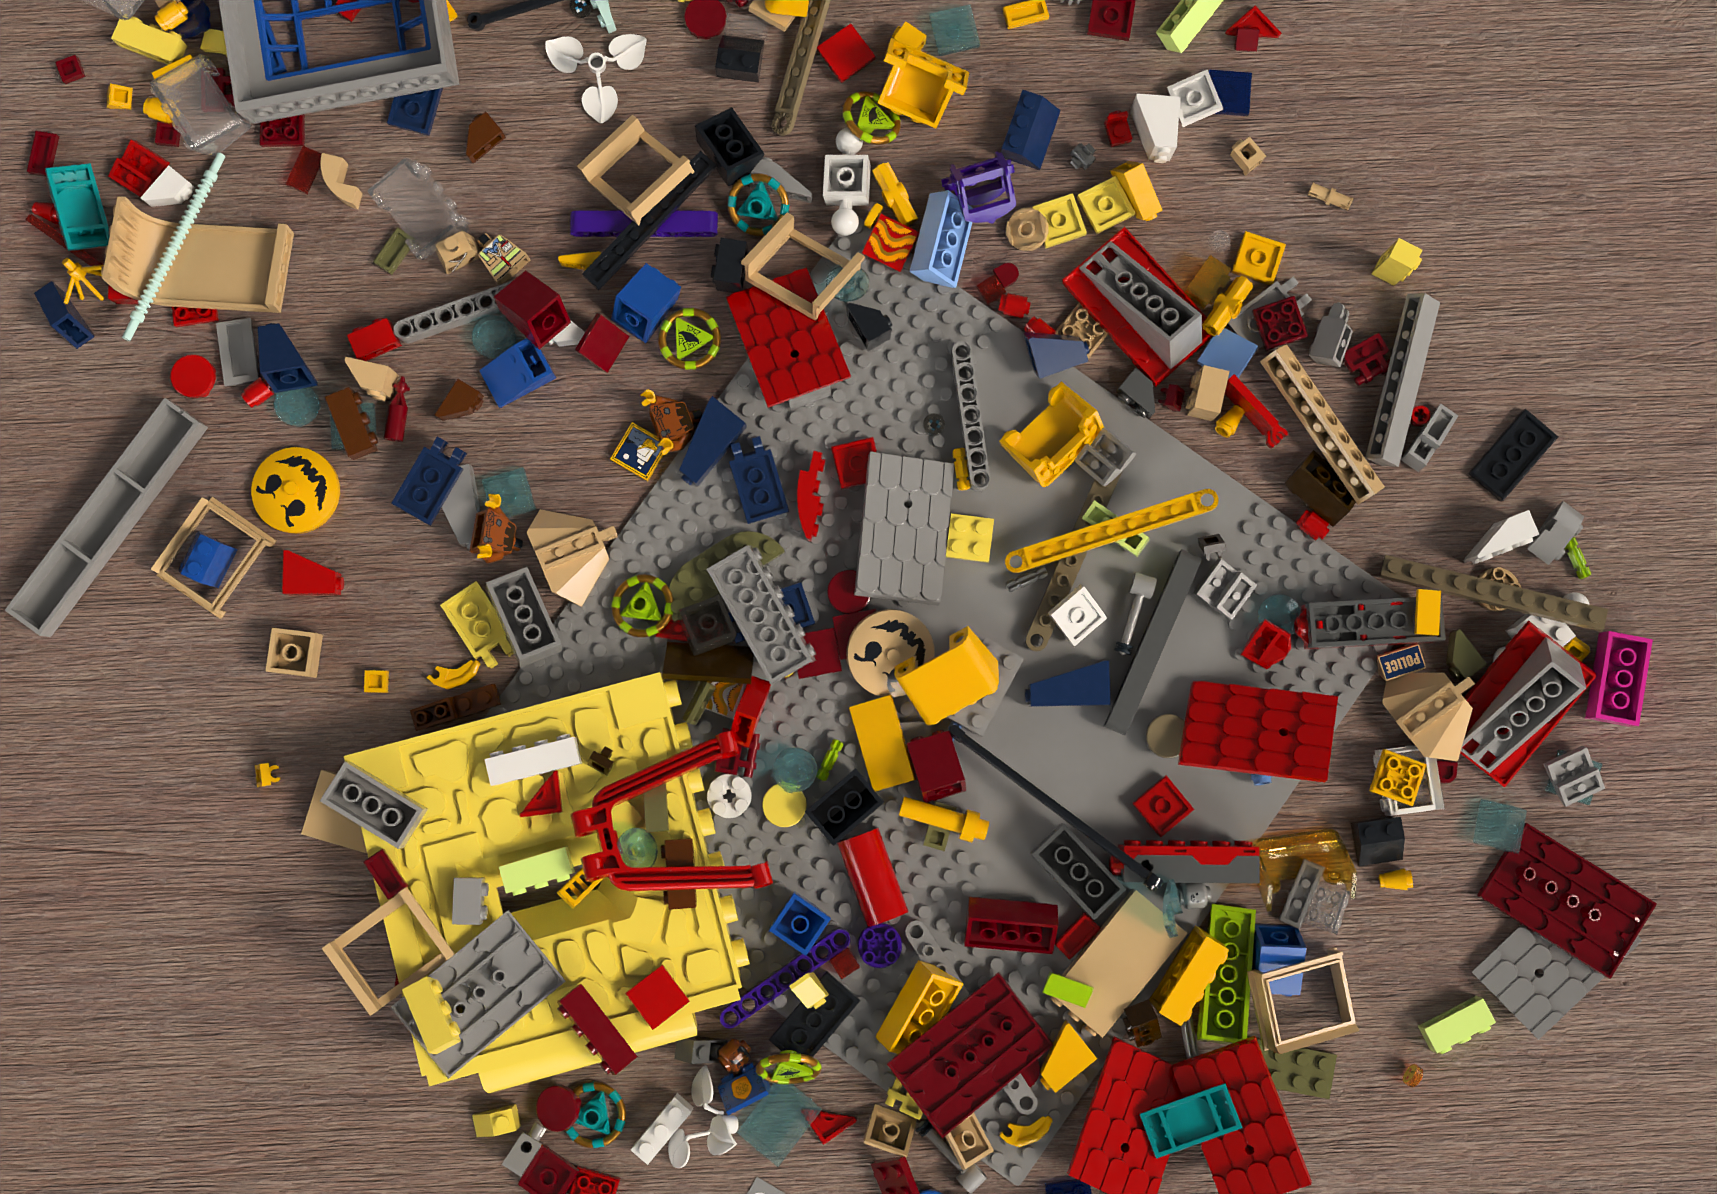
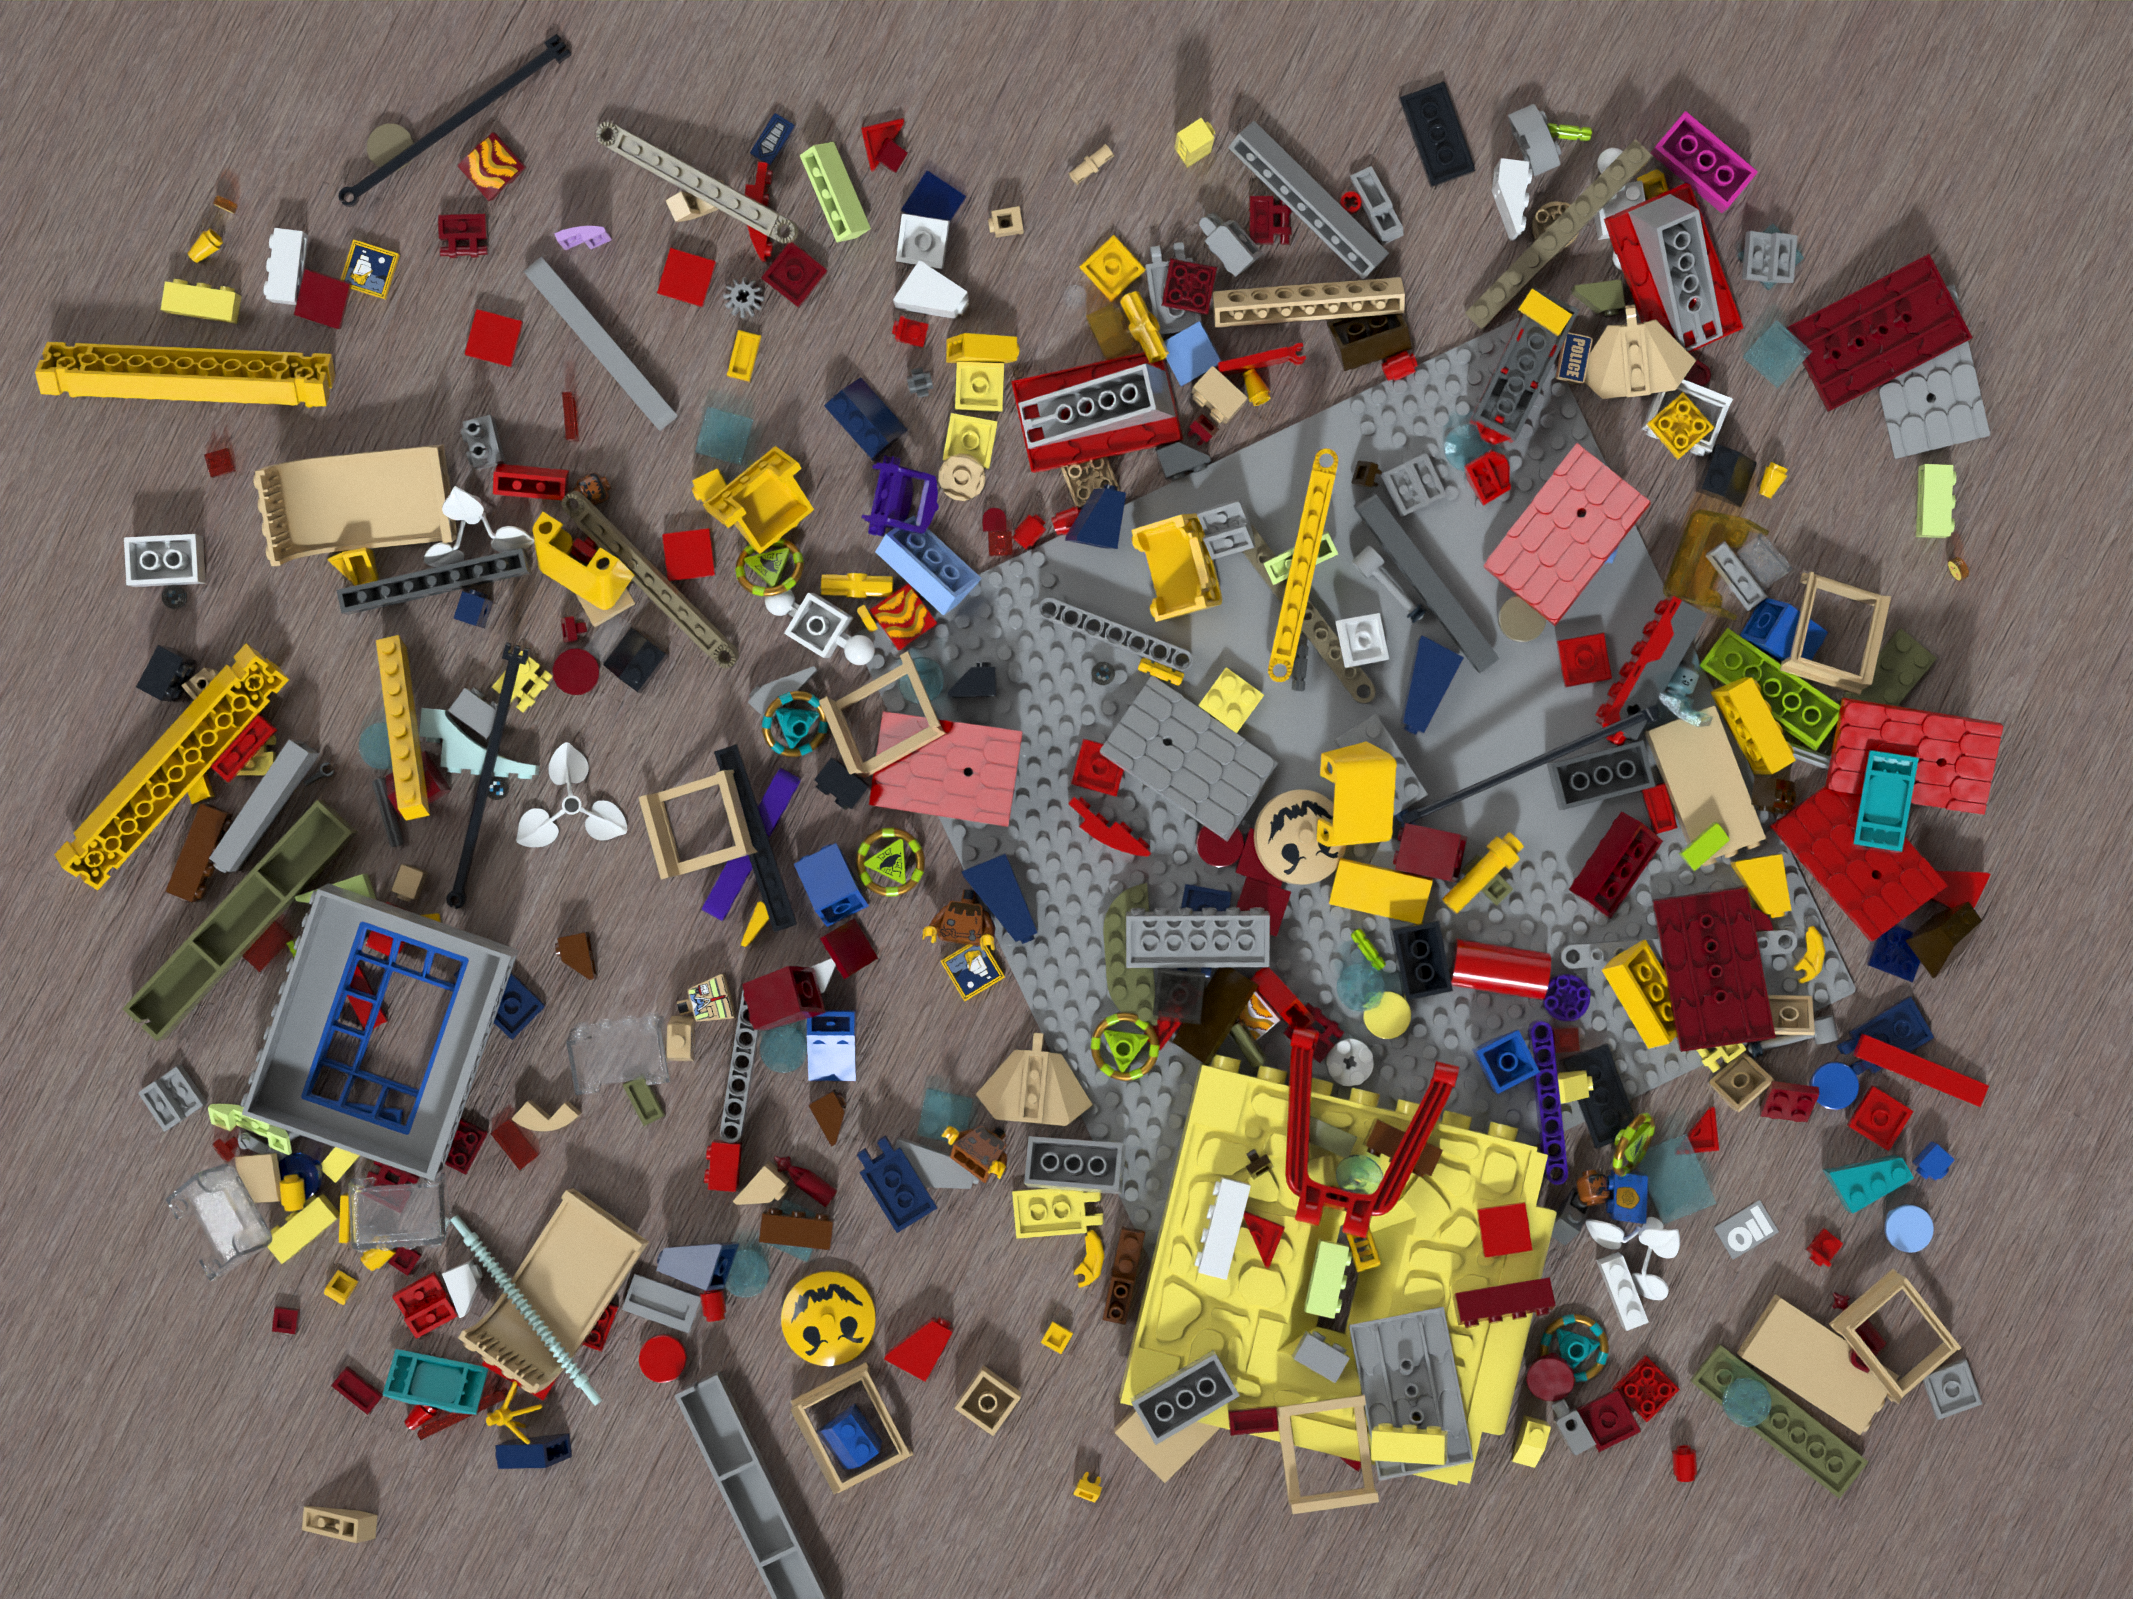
camera: 55 degrees left, 5 degrees up
(729, 145) = (722, 720): black slope -> none
(758, 482) = (1067, 872): dark blue tile -> none

